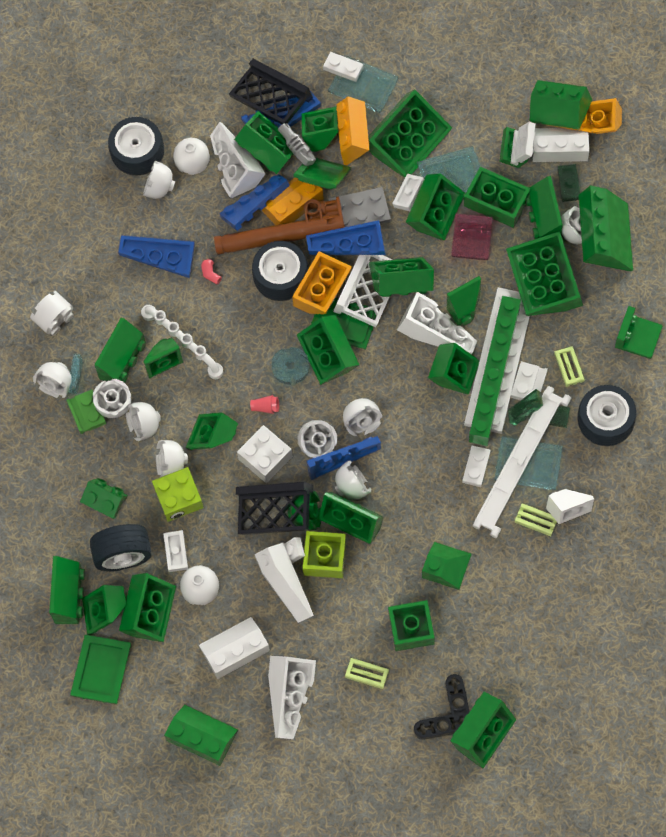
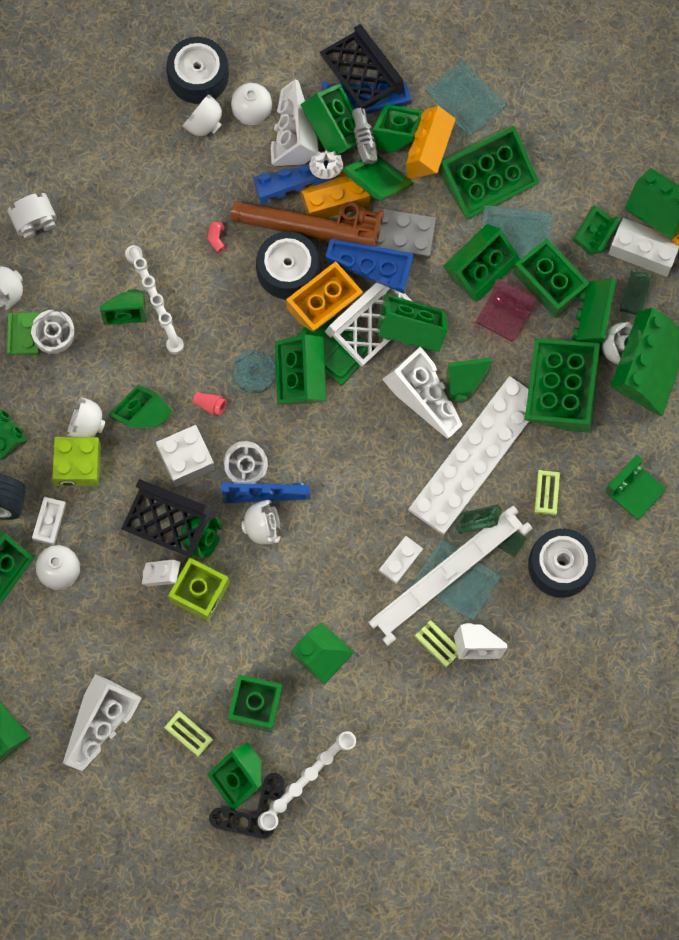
camera: 15 degrees right, 5 degrees up
(76, 370) = (29, 289): clear light blue tile -> none
(120, 352) = (83, 286): green slope -> none
(143, 420) = (76, 367): white cylinder -> none
(160, 253) = (174, 196): blue wing -> none
(234, 647) = (63, 648): white slope -> none
(271, 184) = (334, 166): none -> white gear
(281, 576) = (142, 588): white wedge -> none
(343, 66) = (452, 70): white plate -> none
(350, 517) = (243, 560): green slope -> none
(361, 416) = (303, 456): white cylinder -> none
(408, 192) = (460, 234): white plate -> none
(422, 689) = (237, 775): none -> green slope
(454, 368) = (423, 445): green slope -> none
(466, 709) = (269, 819): none -> white bar
(483, 729) = (281, 849): green slope -> none
(494, 371) = (463, 466): green brick -> none
(523, 143) = (604, 230): white plate -> none
(527, 380) = (497, 489): white plate -> none

